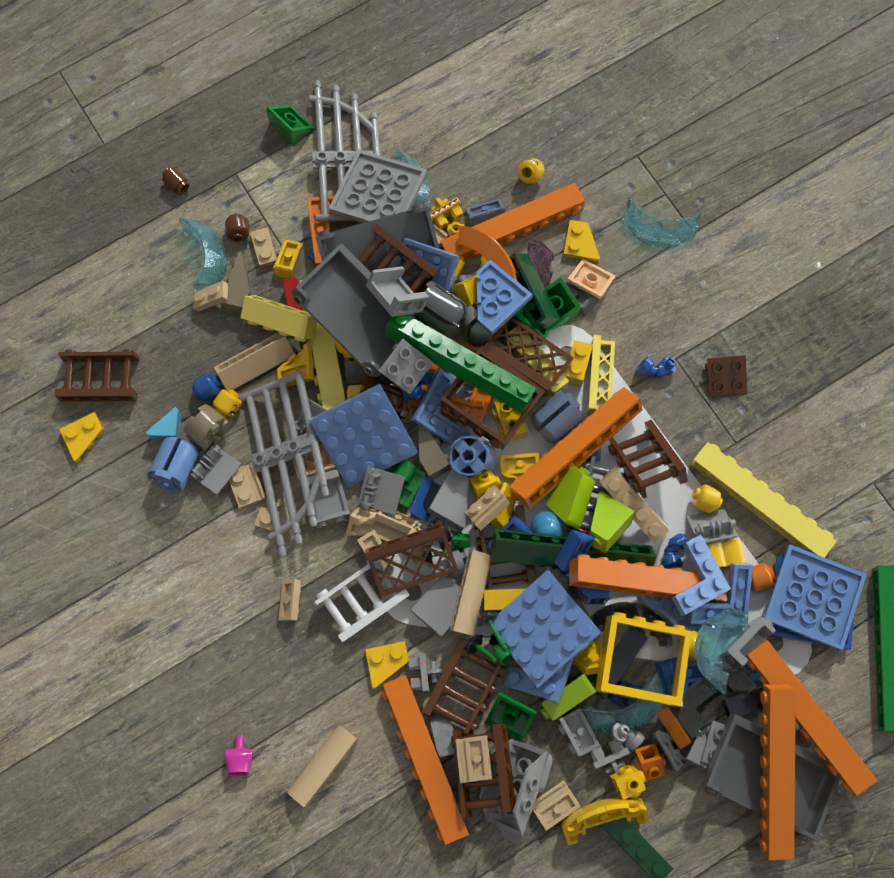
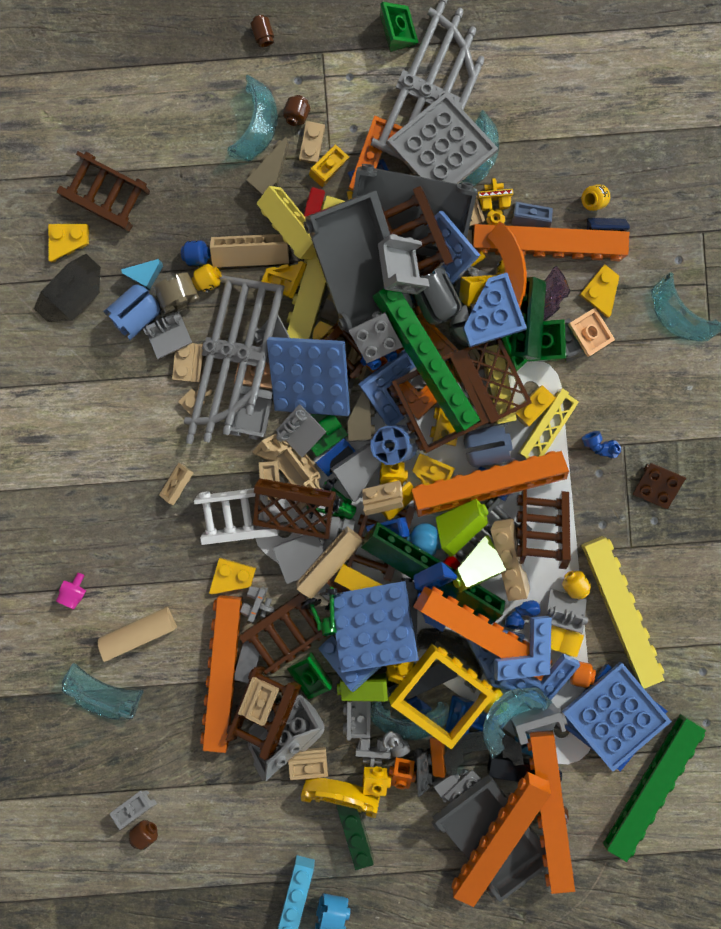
camera: 30 degrees right, 15 degrees up
(105, 478) = (70, 290): none -> clear smoke wedge
(210, 296) = (239, 167): tan plate -> none
(316, 851) = (100, 697): none -> clear light blue windscreen
(553, 187) = (608, 224): none -> dark blue slope

